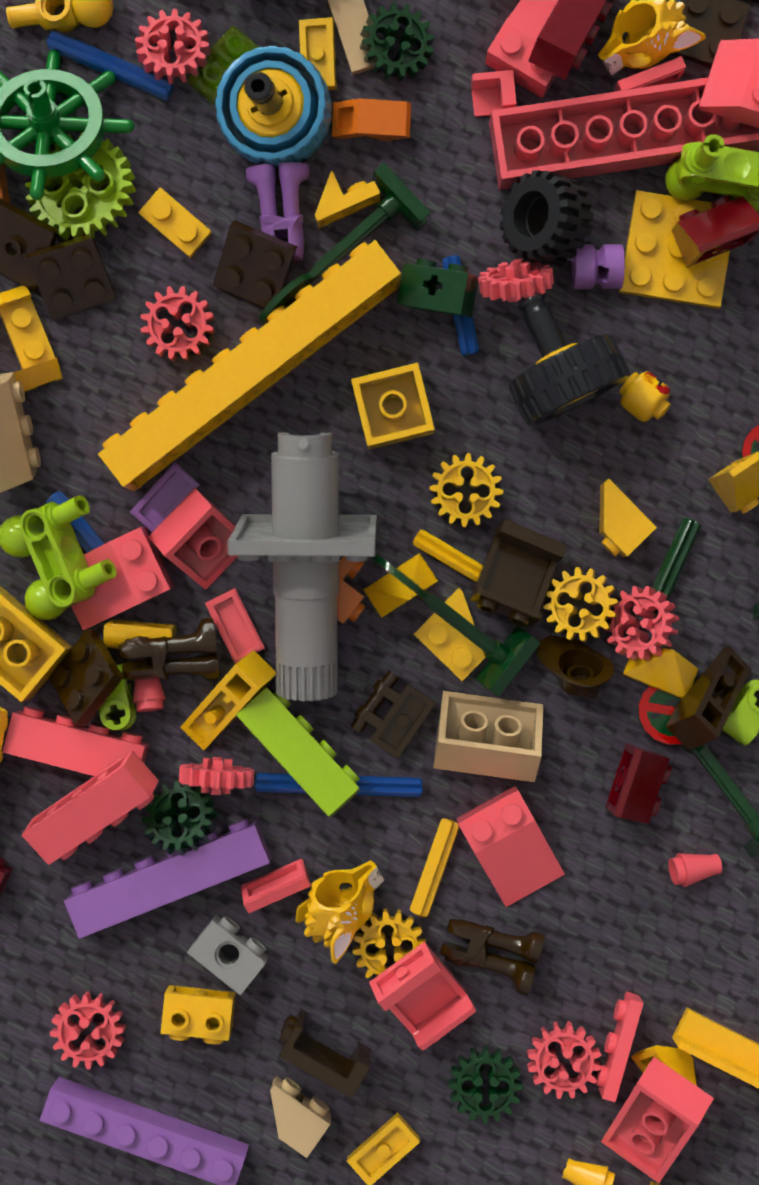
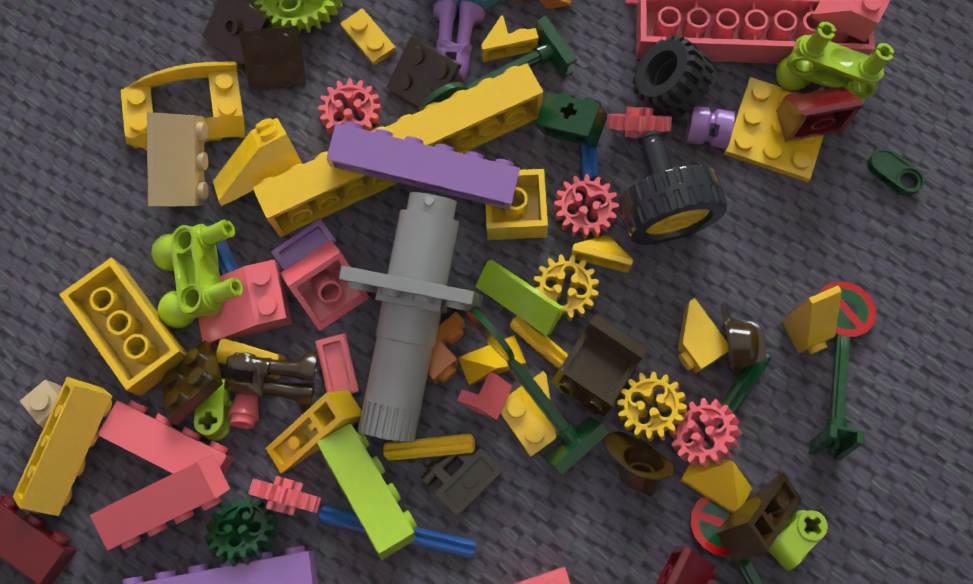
camera: 15 degrees right, 15 degrees down
(88, 414) = (260, 155): none -> yellow slope
(284, 394) = (422, 165): none -> medium lavender brick
(357, 694) = (429, 447): none -> yellow axle
(407, 631) = (490, 399): none -> coral panel
(417, 513) = (519, 297): none -> lime tile
(453, 386) = (578, 222): none -> coral gear
(489, 736) = (546, 513): tan slope -> none
(500, 439) = (603, 252): none -> yellow slope
(645, 396) = (735, 238): yellow head -> none
(669, 516) = (745, 342): none -> dark brown piece

